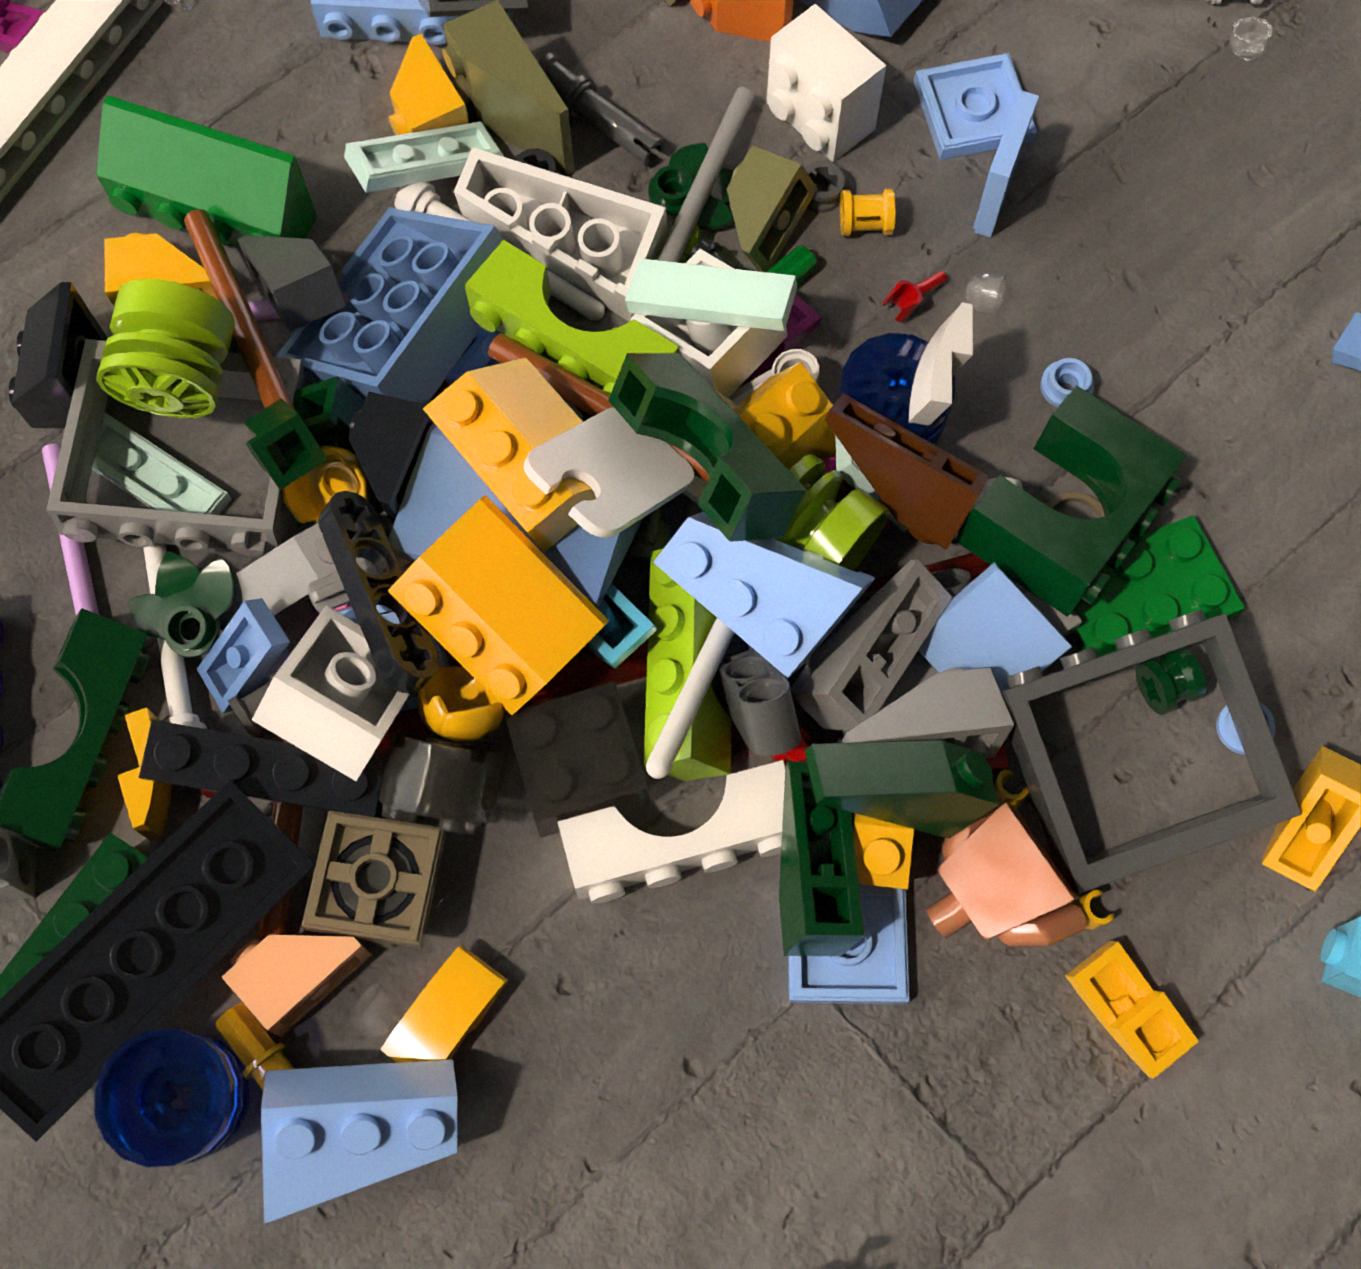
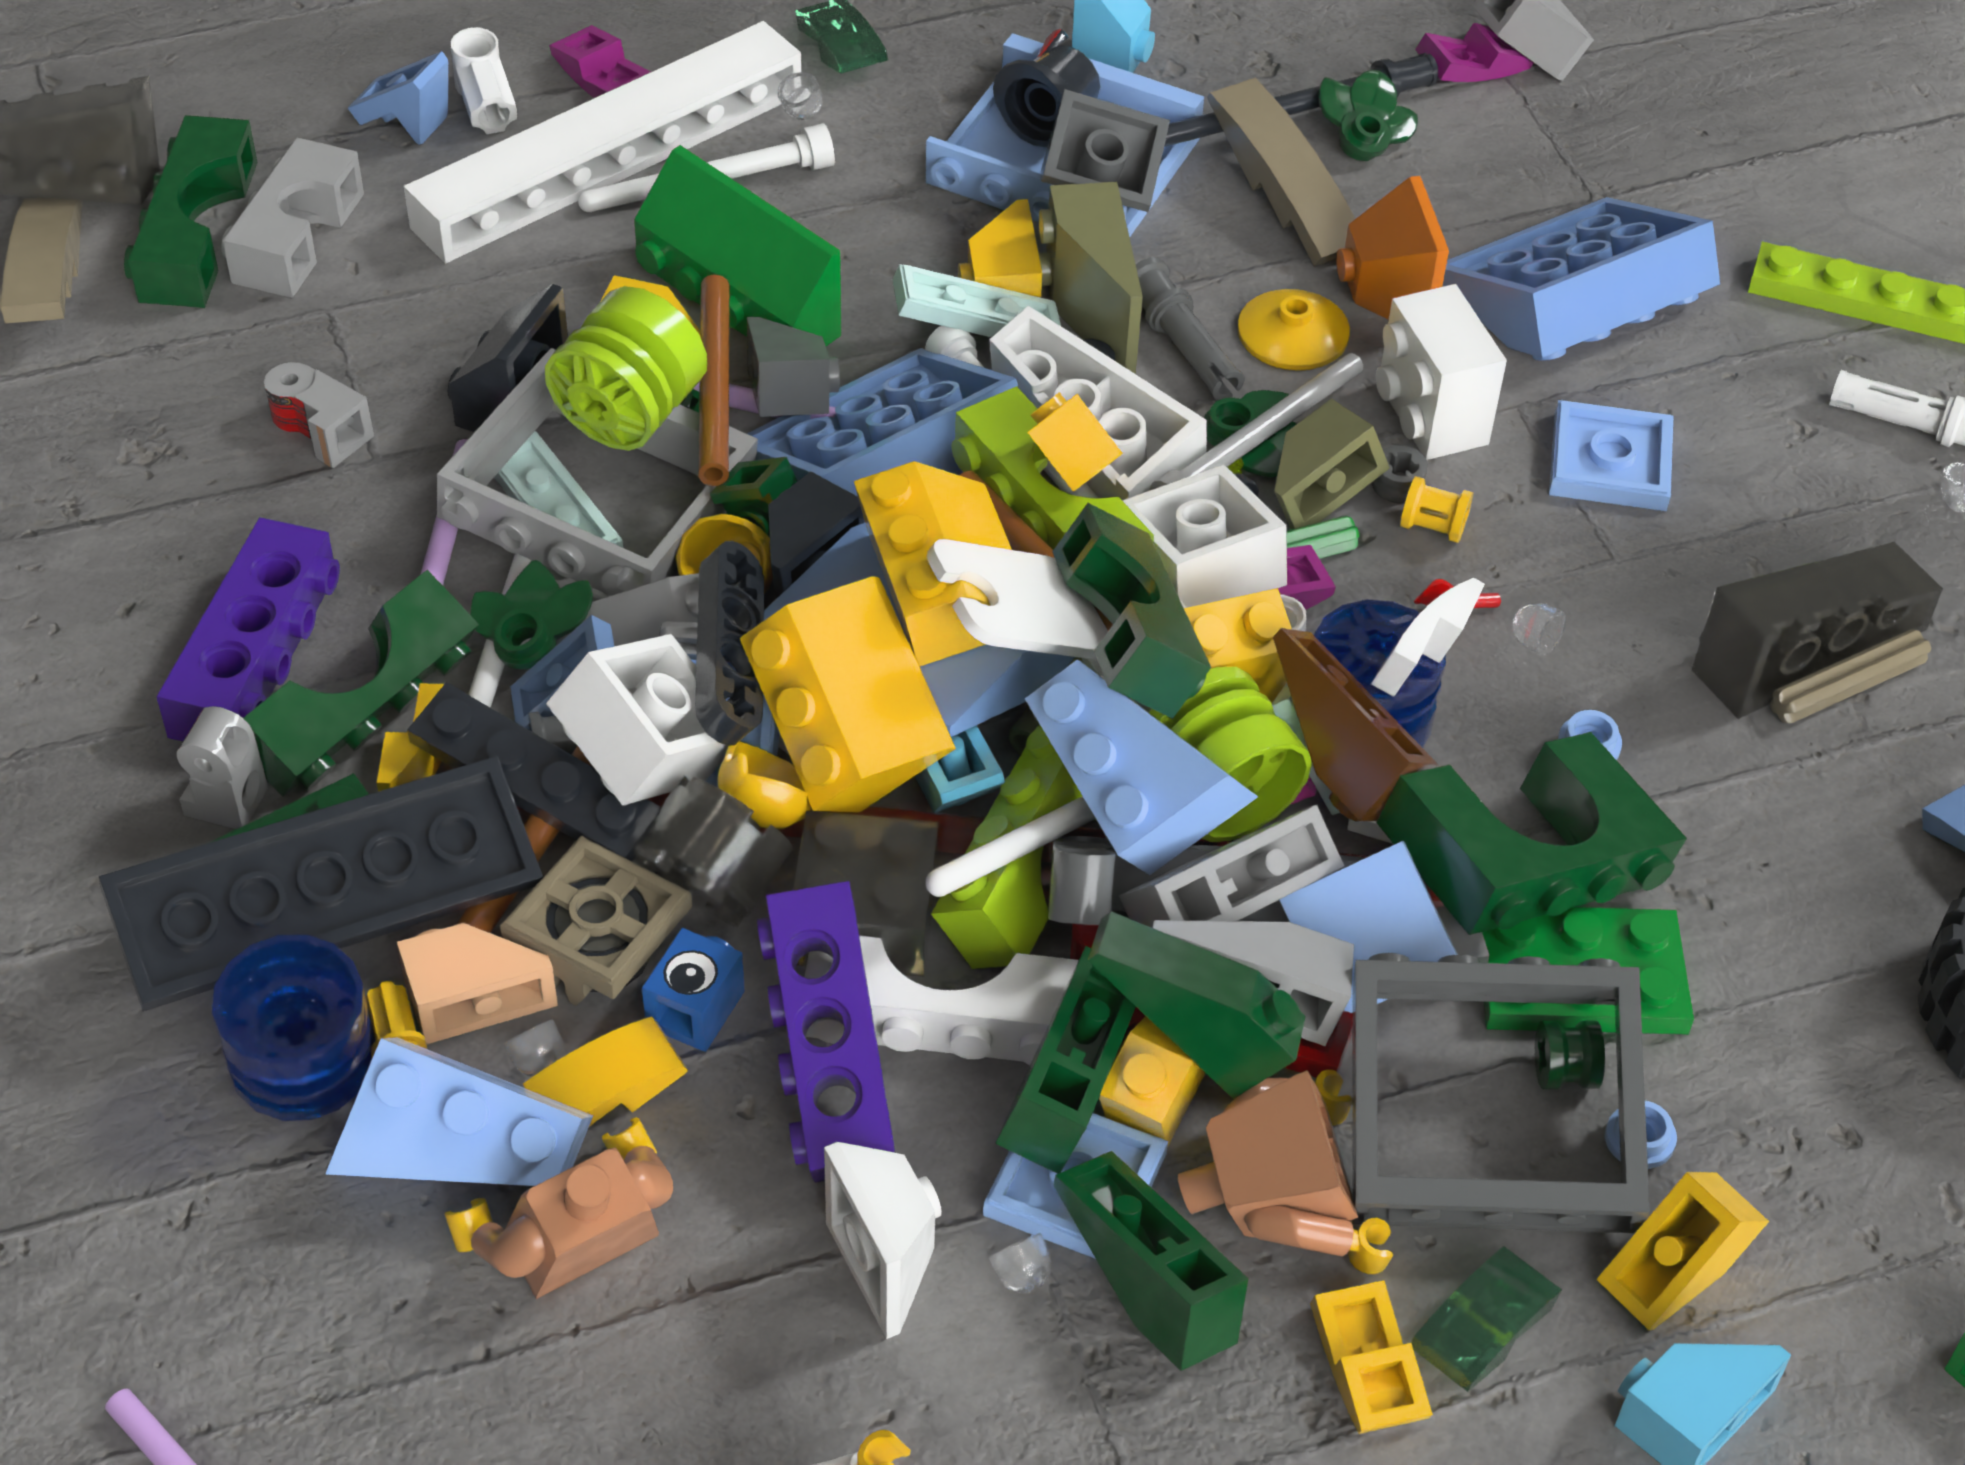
camera: 20 degrees right, 20 degrees down
(209, 41) = (809, 148): none -> white piece
(283, 444) = (700, 488): dark green brick -> none
(480, 903) = (694, 988): none -> blue brick
(489, 1169) = (573, 1217): none -> nougat torso
(581, 285) = (1072, 439): none -> yellow slope
(676, 992) = (825, 922): none -> dark purple brick
(684, 88) = (1293, 329): none -> yellow dish
(711, 294) = (1212, 500): light aqua tile -> none
(731, 1067) = (881, 1226): none -> white slope
(840, 1039) = (1023, 1264): none -> clear hinge
(944, 1003) = (1157, 1263): none -> dark green slope
(1005, 163) = (1609, 504): light blue tile -> none
(1192, 214) = (1806, 619): none -> clear smoke wedge
(1202, 939) = (1485, 1318): none -> clear green slope
(1232, 247) = (1850, 676): none -> dark tan axle

